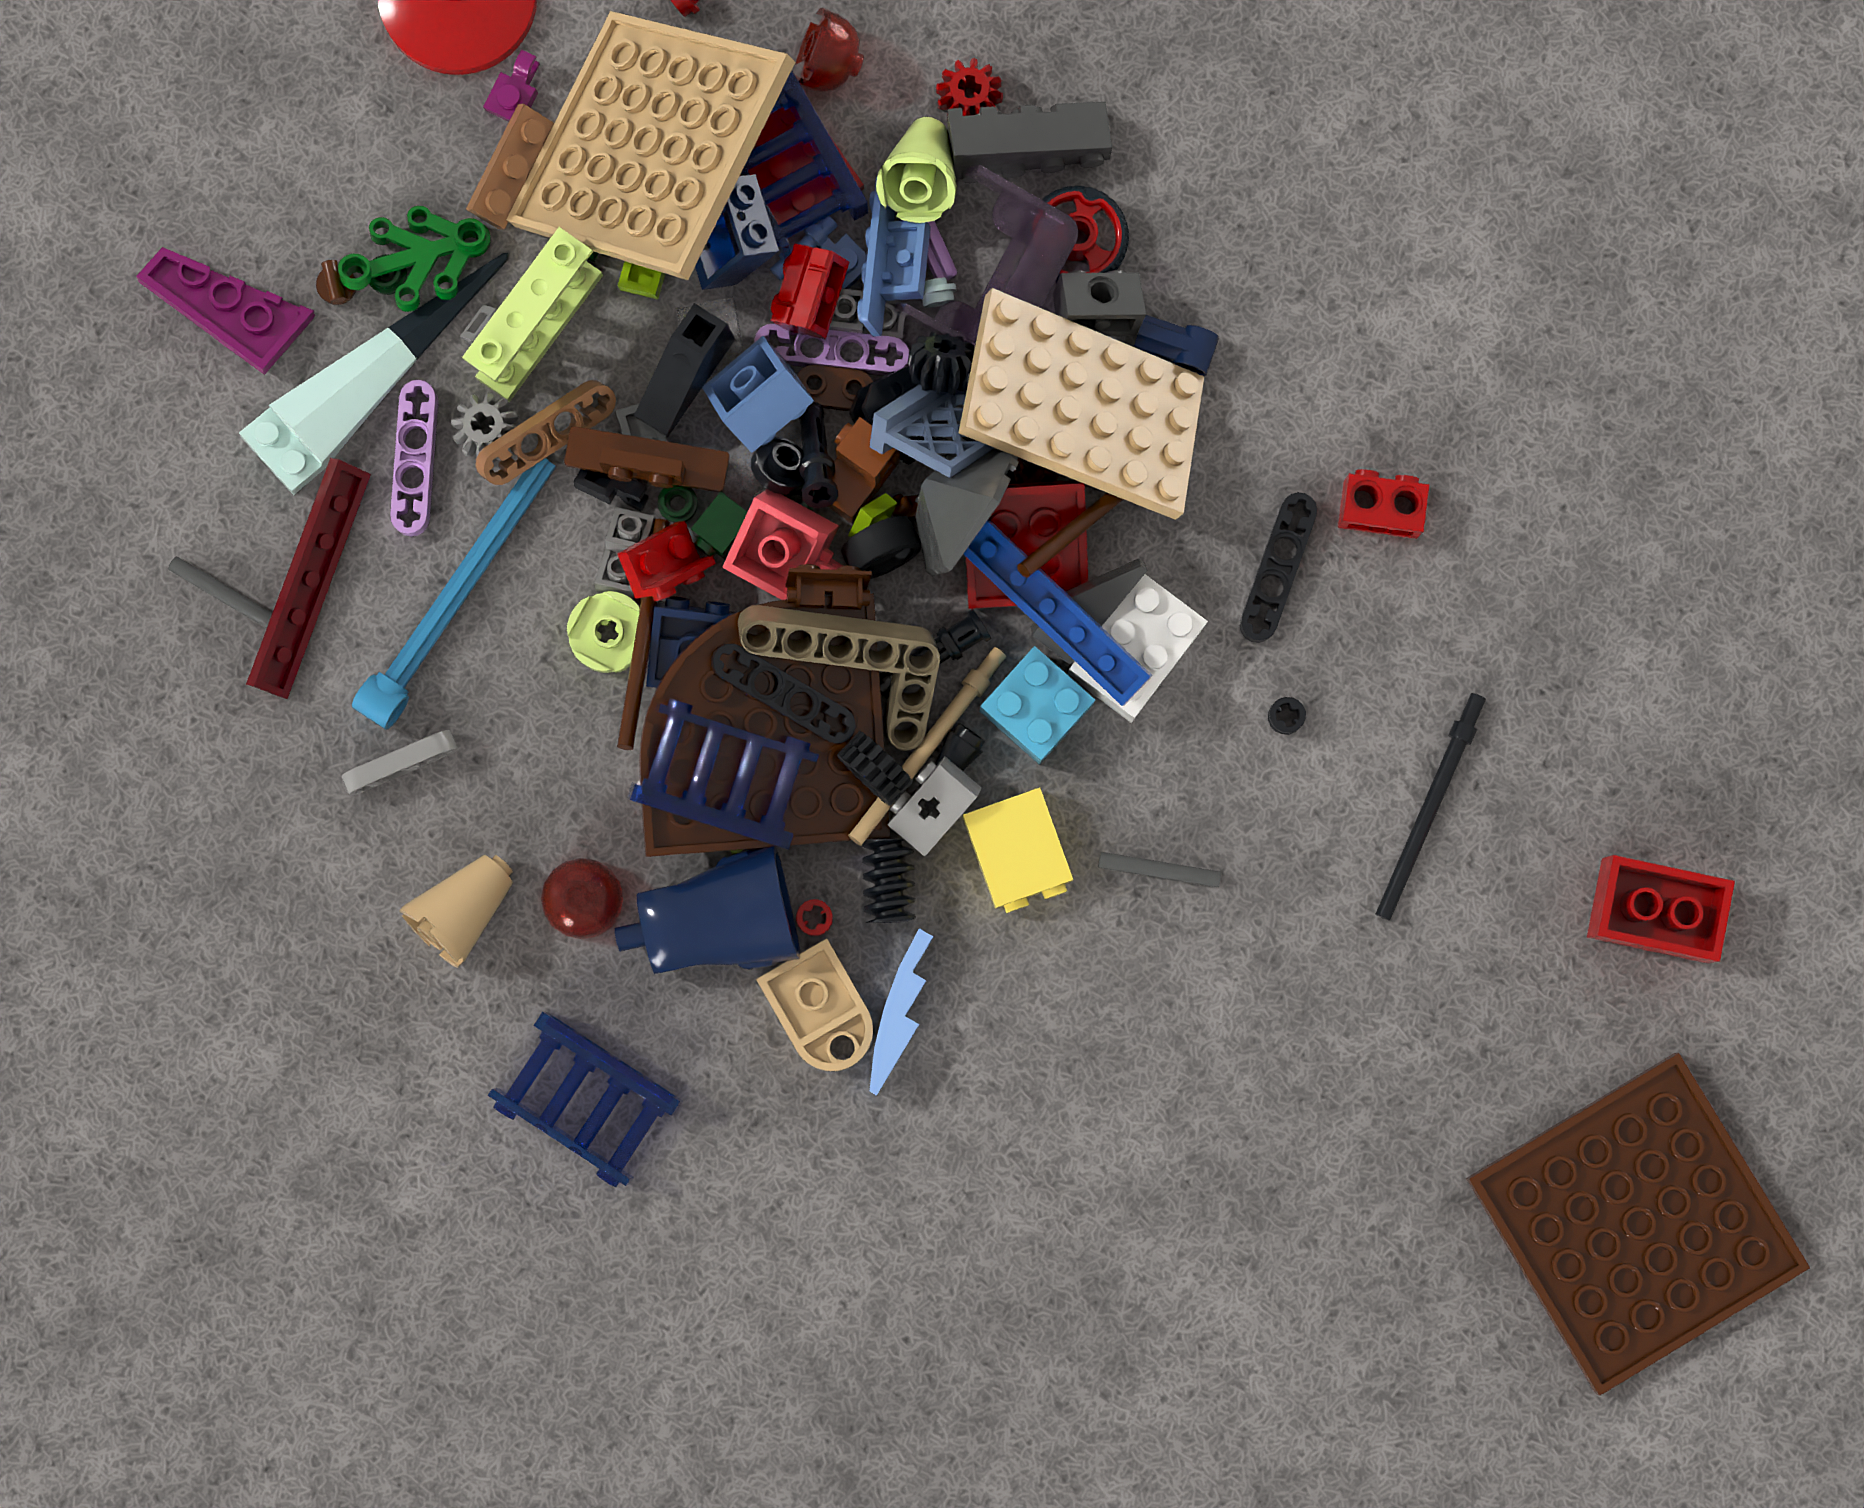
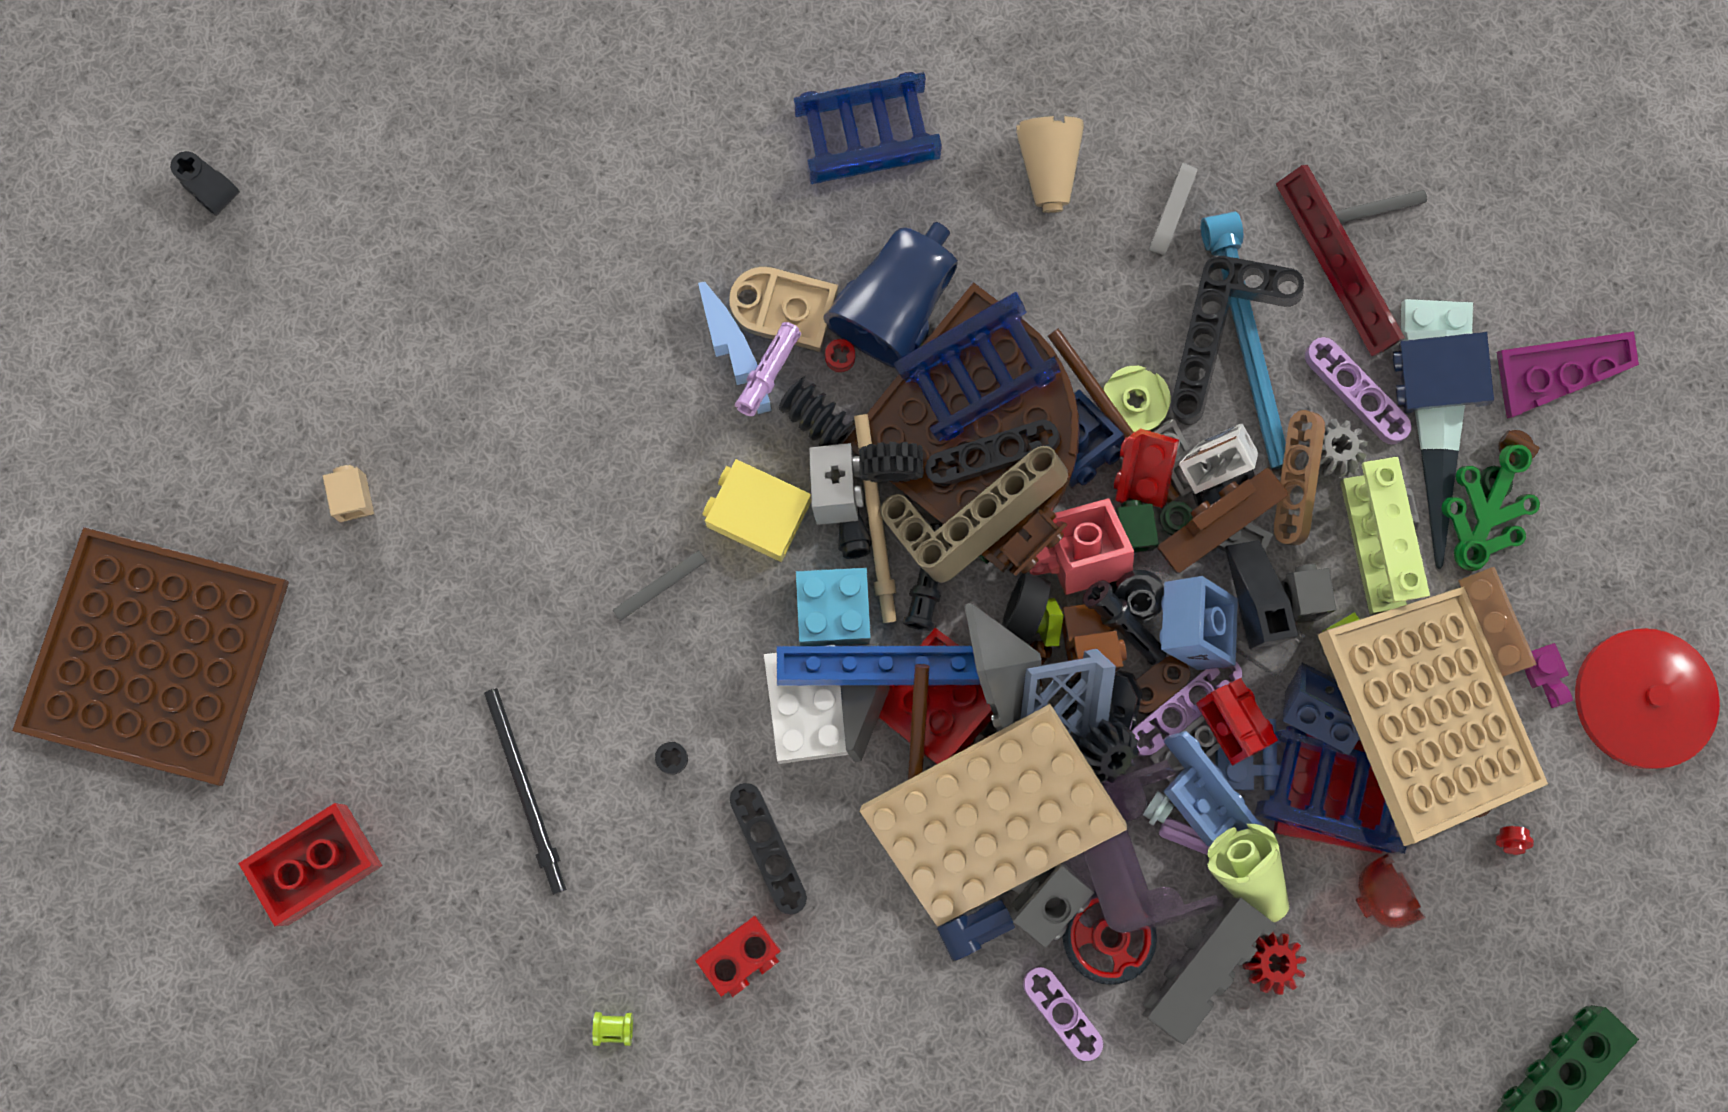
camera: 130 degrees right, 5 degrees down
(333, 396) = (1444, 372): none -> dark blue panel
(479, 624) = (1214, 324): none -> black beam
(582, 898) = (987, 236): clear red cylinder -> none
(596, 508) = (1226, 457): none -> white torso
(644, 333) = (1309, 593): none -> dark grey brick
(908, 950) = (762, 379): none -> lavender pin
(1185, 192) = (1087, 1029): none -> lavender beam
(1347, 1205) = (348, 493): none -> tan brick
(1536, 547) = (612, 1029): none -> lime bush

